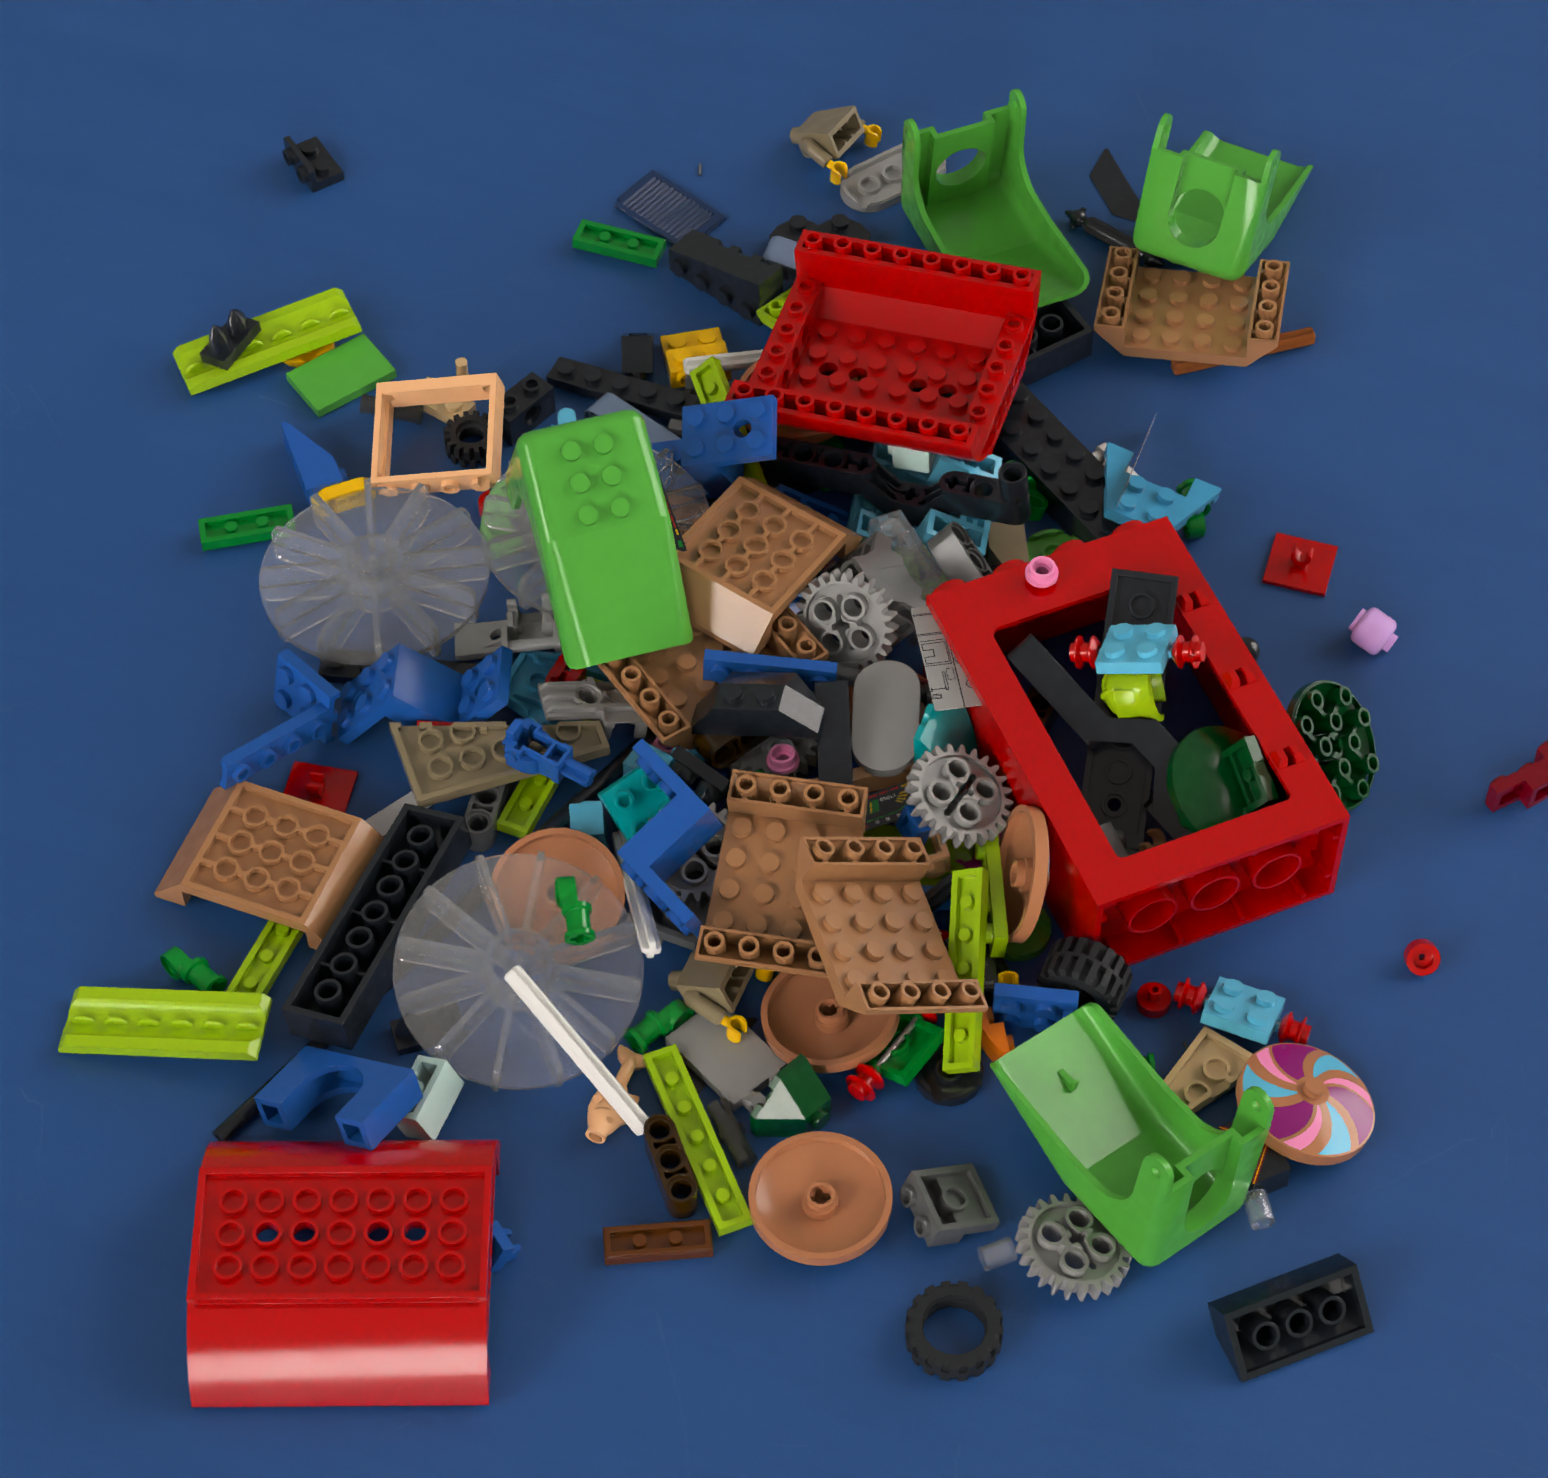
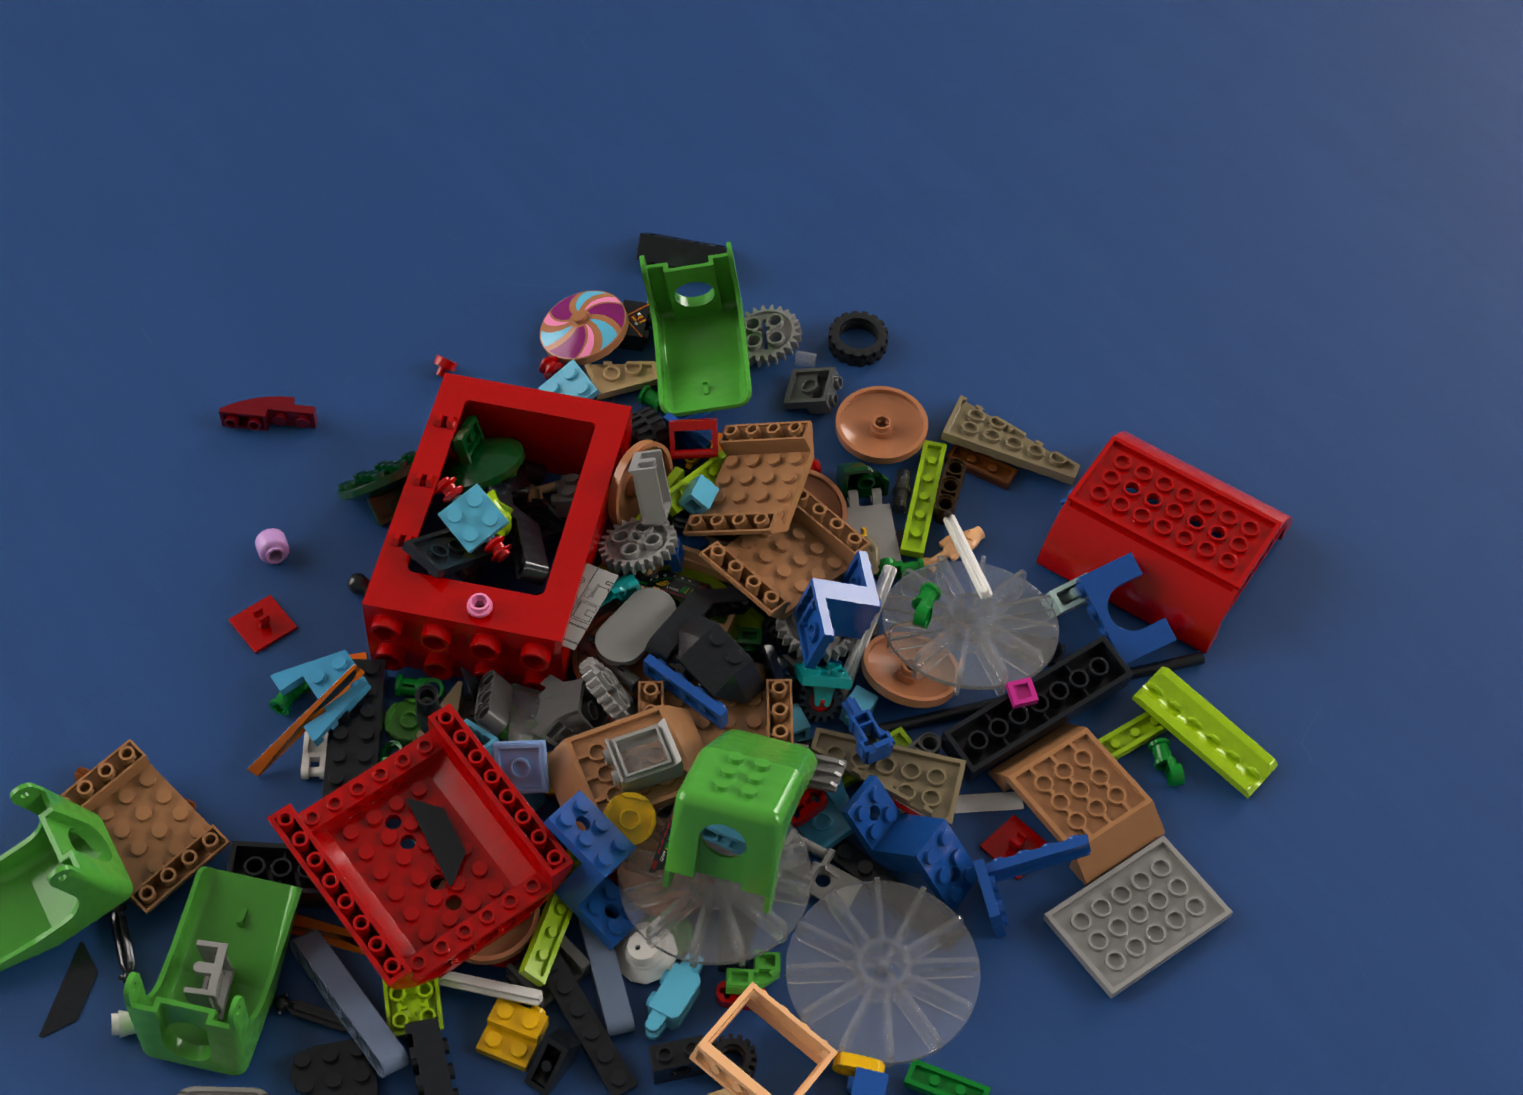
camera: 150 degrees left, 0 degrees up
(137, 789) = (1137, 916): none -> light grey plate
(397, 893) = (1021, 692): none -> dark pink plate
(665, 1280) = (1003, 441): none -> dark tan wing
(712, 492) = (632, 816): none -> yellow tile
(744, 535) = (643, 758): none -> light grey window
(873, 507) = (524, 764): none -> light blue tile
(887, 395) = (440, 837): none -> black sticker
(943, 899) = (698, 495): none -> medium azure brick
(987, 220) = (217, 979): none -> light grey window
(987, 821) = (651, 486): none -> light grey window
(1019, 978) = (690, 425): none -> red tile
(1044, 181) = (121, 1024): none -> white cone

